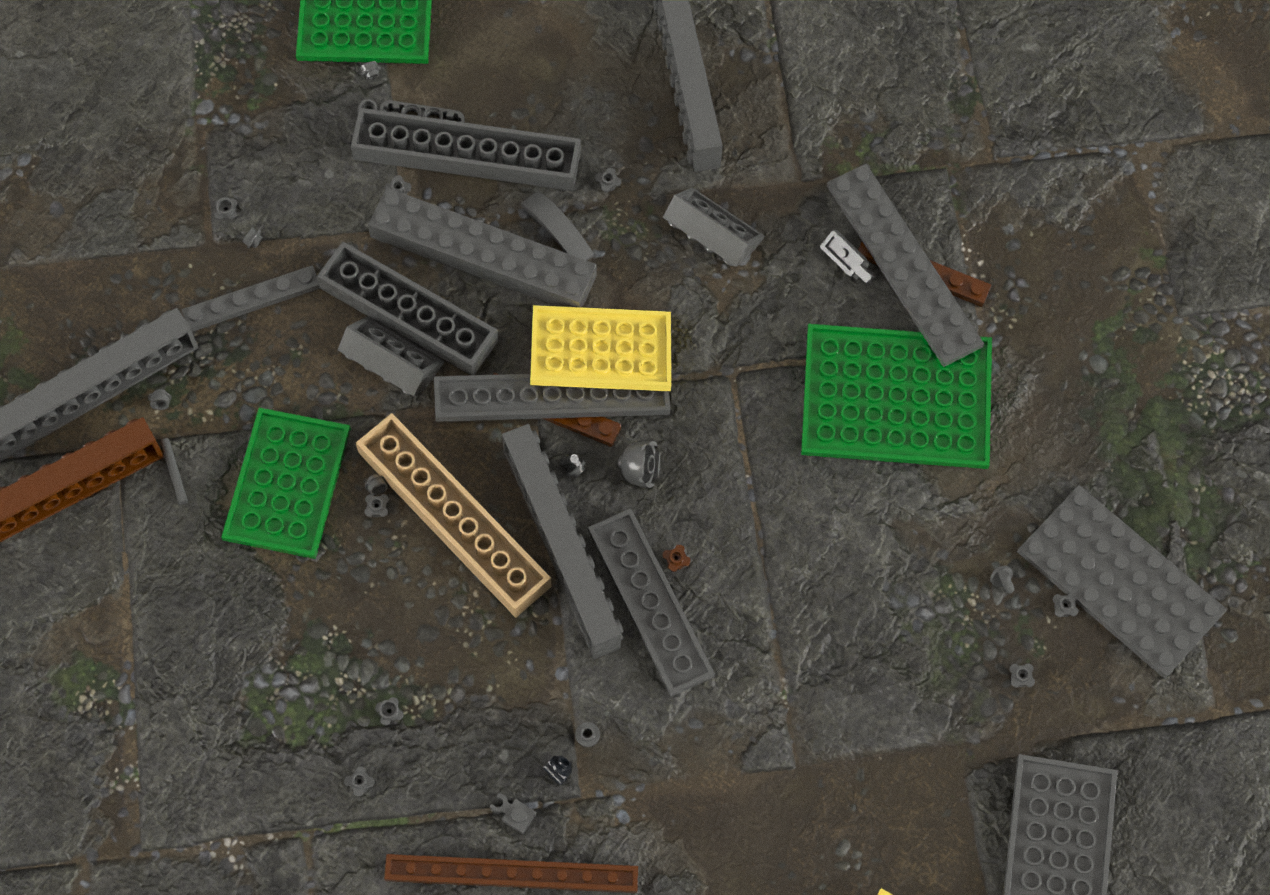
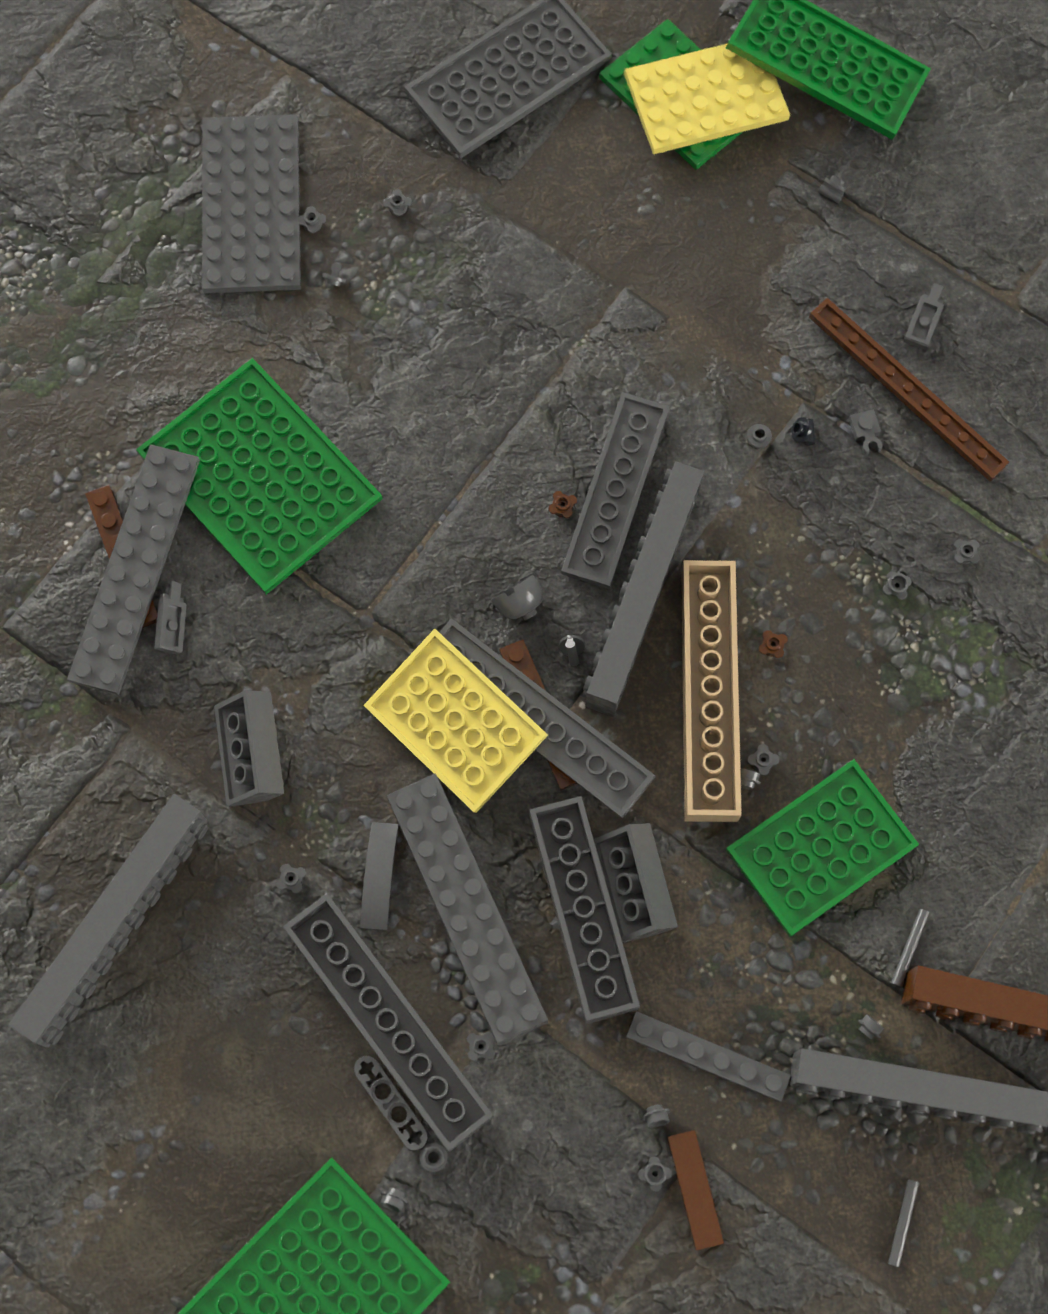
camera: 135 degrees left, 5 degrees up
(45, 307) = (903, 1223): none -> dark grey bar
(193, 221) = (695, 1190): none -> reddish brown tile
(440, 596) = (773, 651): none -> reddish brown plate

